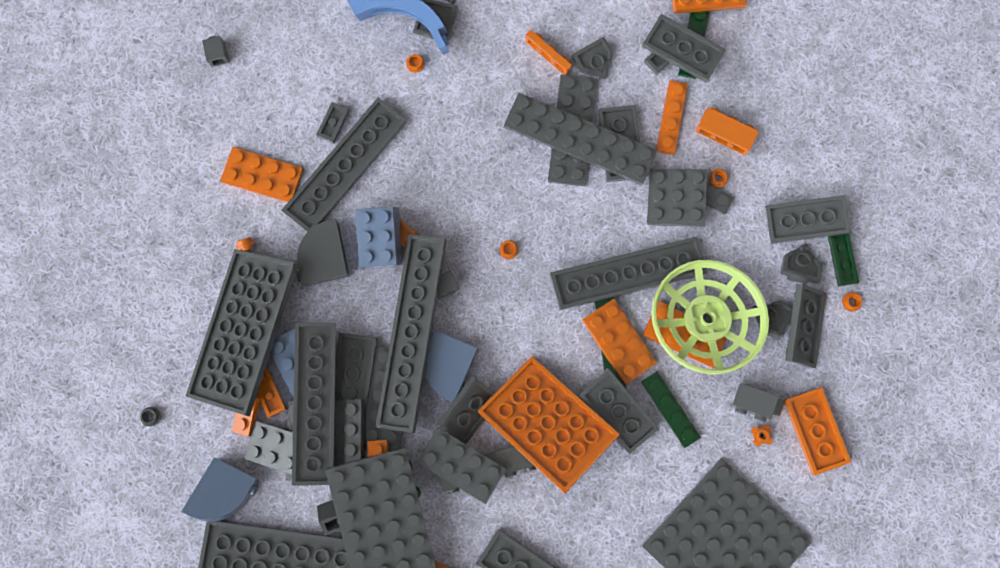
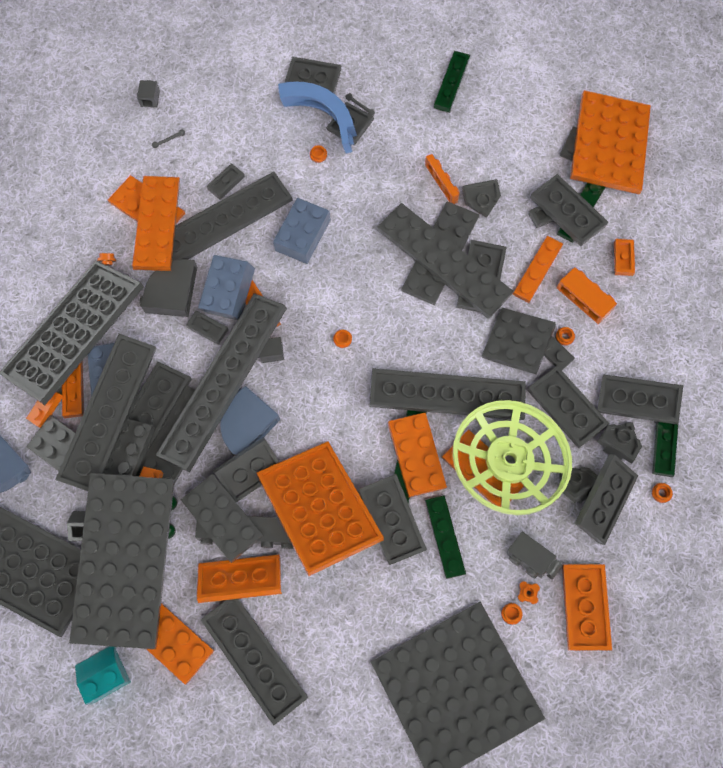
camera: 20 degrees right, 10 degrees down
(244, 104) = (156, 144): none -> dark grey hinge
(282, 191) = (156, 223): none -> orange plate
(373, 281) = (207, 327): none -> dark grey plate
(429, 152) = (302, 230): none -> sand blue brick
(500, 514) = (239, 579): none -> orange plate
(743, 248) = (568, 406): none -> dark grey plate
(749, 79) = (624, 257): none -> orange plate
(753, 459) = (511, 613): none -> orange plate

